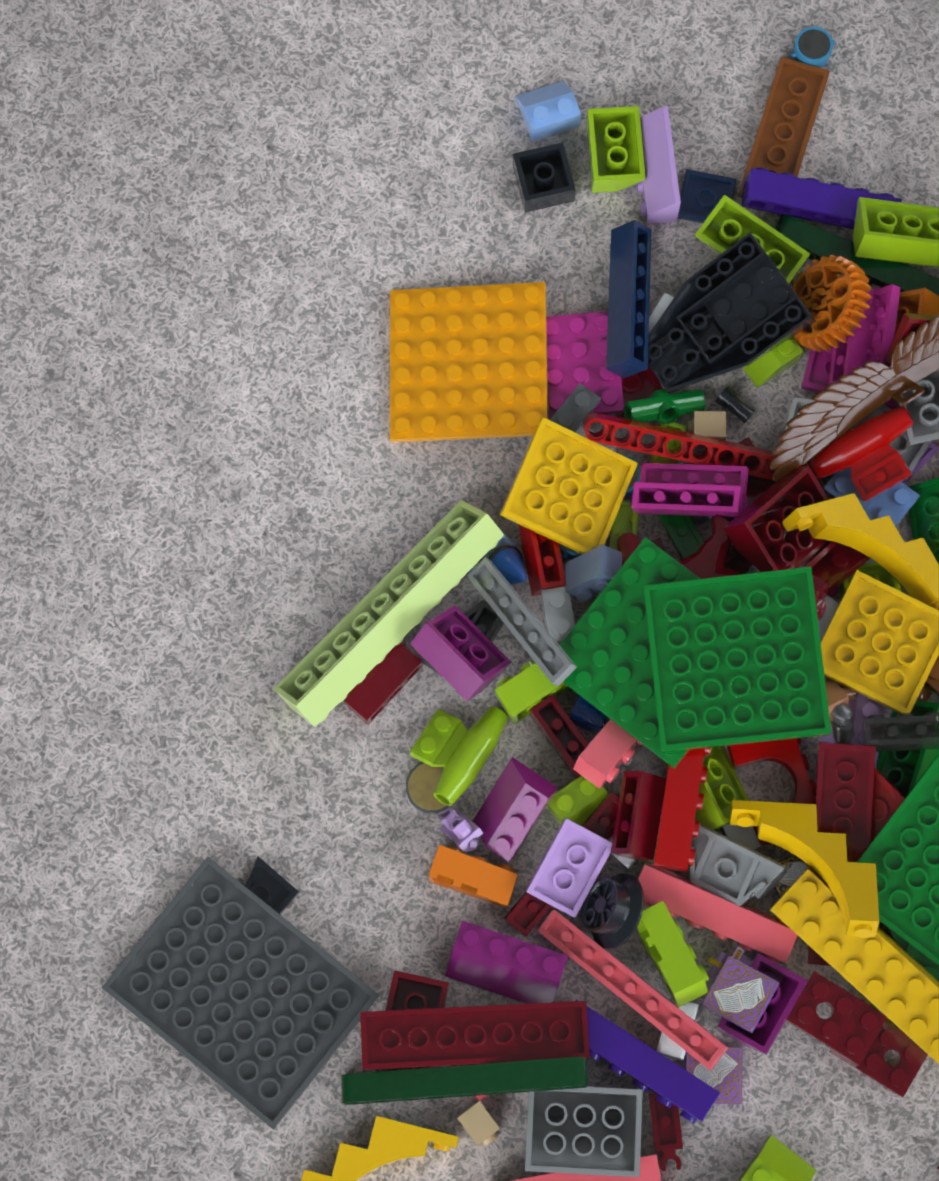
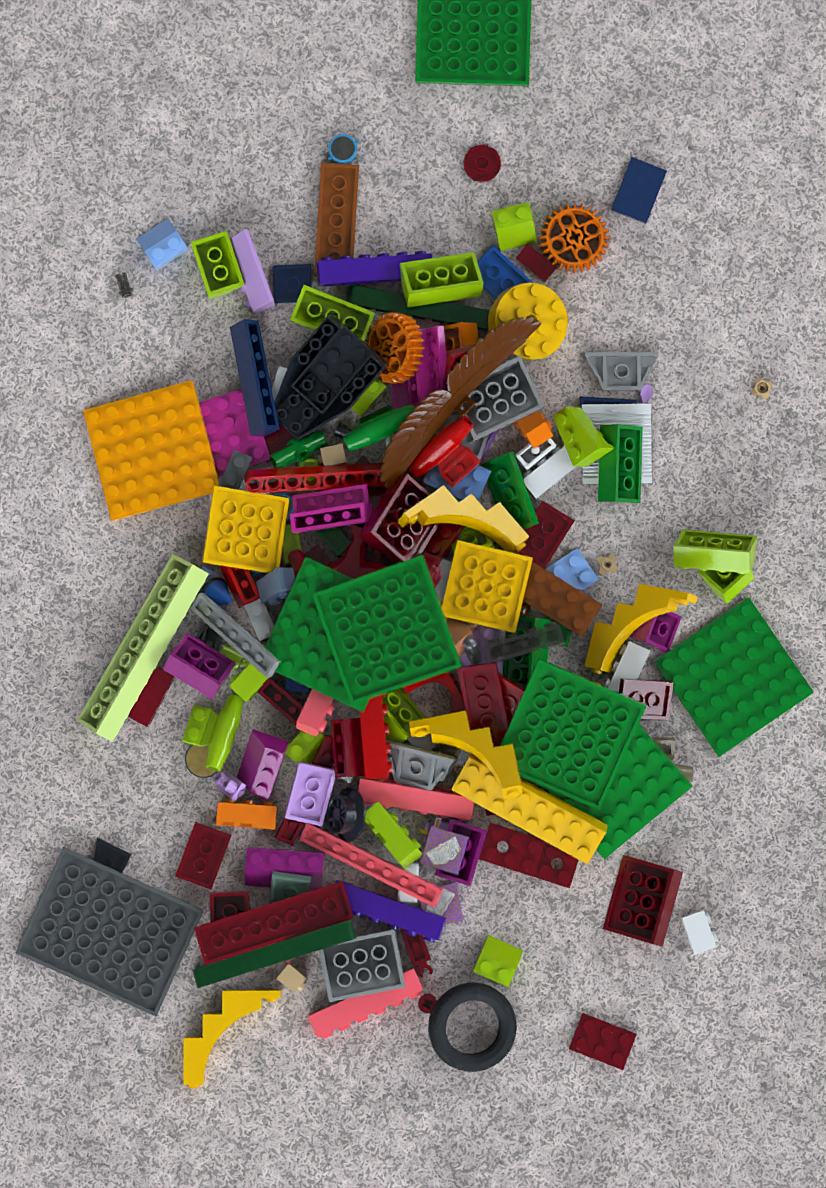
camera: 15 degrees left, 10 degrees up
(398, 919) = (203, 855): none -> dark red plate
(485, 148) = (124, 286): none -> clear smoke pin
(506, 988) = (288, 885): none -> sand green plate
(513, 655) = (234, 655): none -> lime brick
(544, 177) = (171, 299): black brick -> none
(777, 399) = (376, 426): none -> green plate

